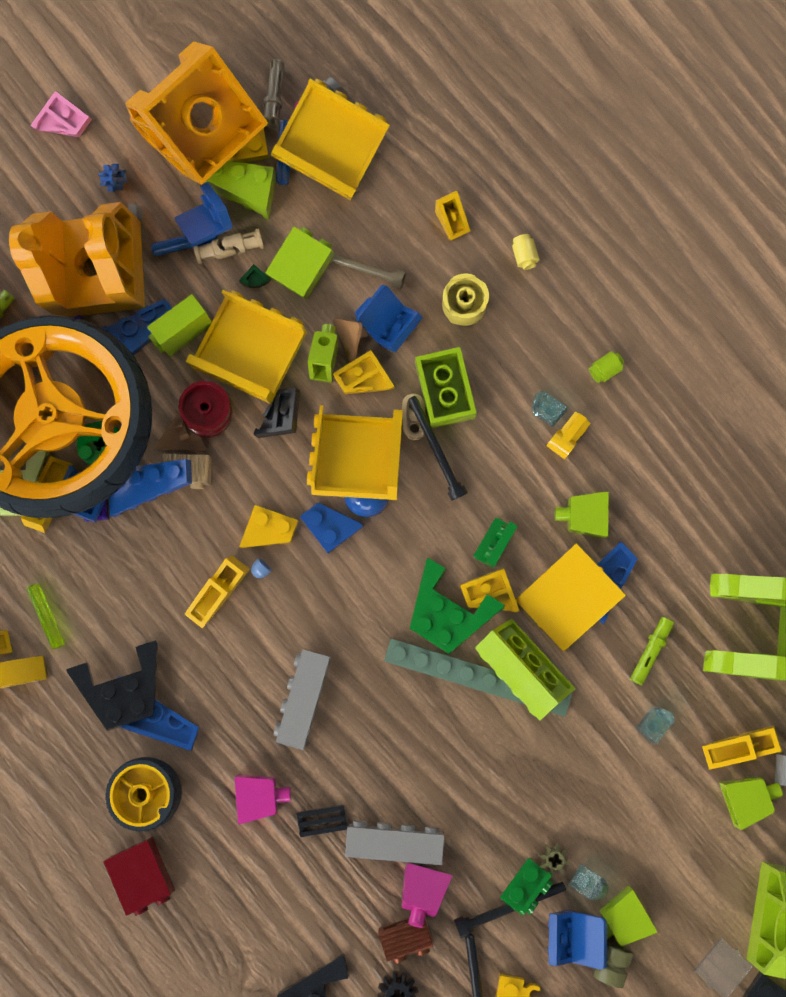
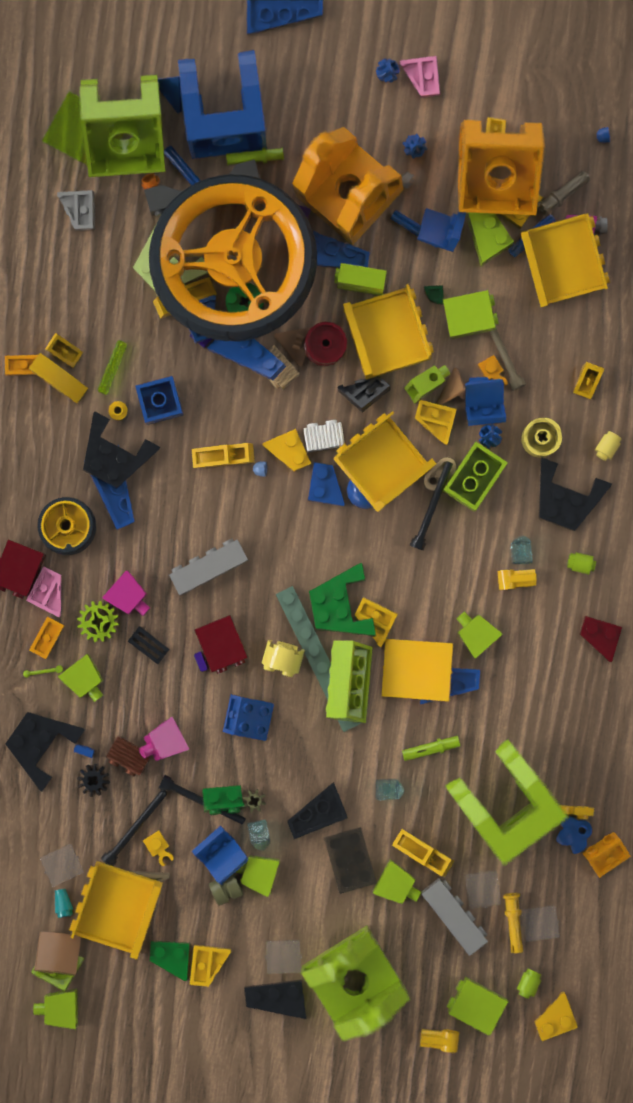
camera: 40 degrees right, 5 degrees up
(27, 141) = (387, 70): none -> blue gear
(95, 647) = (124, 410): none -> yellow plate
(113, 602) = (159, 400): none -> blue brick
(186, 869) = (47, 592): none -> bright pink wing
(227, 910) = (46, 637): none -> light orange plate
(232, 244) = (442, 261): tan piece -> none
(246, 842) = (90, 623): none -> lime gear
(258, 18) = (603, 135): none -> blue hinge
(266, 925) = (58, 669): none -> lime hinge
(284, 486) = (323, 436): none -> white brick
(295, 912) = (83, 678): none -> lime torso
(362, 975) = (84, 750): none -> blue tile
(363, 288) = (491, 369): none -> light orange plate
(381, 787) = (201, 661): none -> dark purple tile
(383, 753) = (221, 644): none -> dark red brick
(394, 844) = (175, 699): light grey brick -> none
(422, 342) = (490, 436): none -> blue gear
(447, 709) = (282, 658): none -> light yellow brick
(472, 792) = (248, 717): none -> blue bracket
(494, 542) = (408, 594): green bracket -> none
(541, 336) = (562, 504): none -> black wing
(619, 810) = (318, 813): none -> black wing
(687, 409) = (601, 636): none -> dark red wing
(689, 821) = (350, 860): none -> clear smoke plate

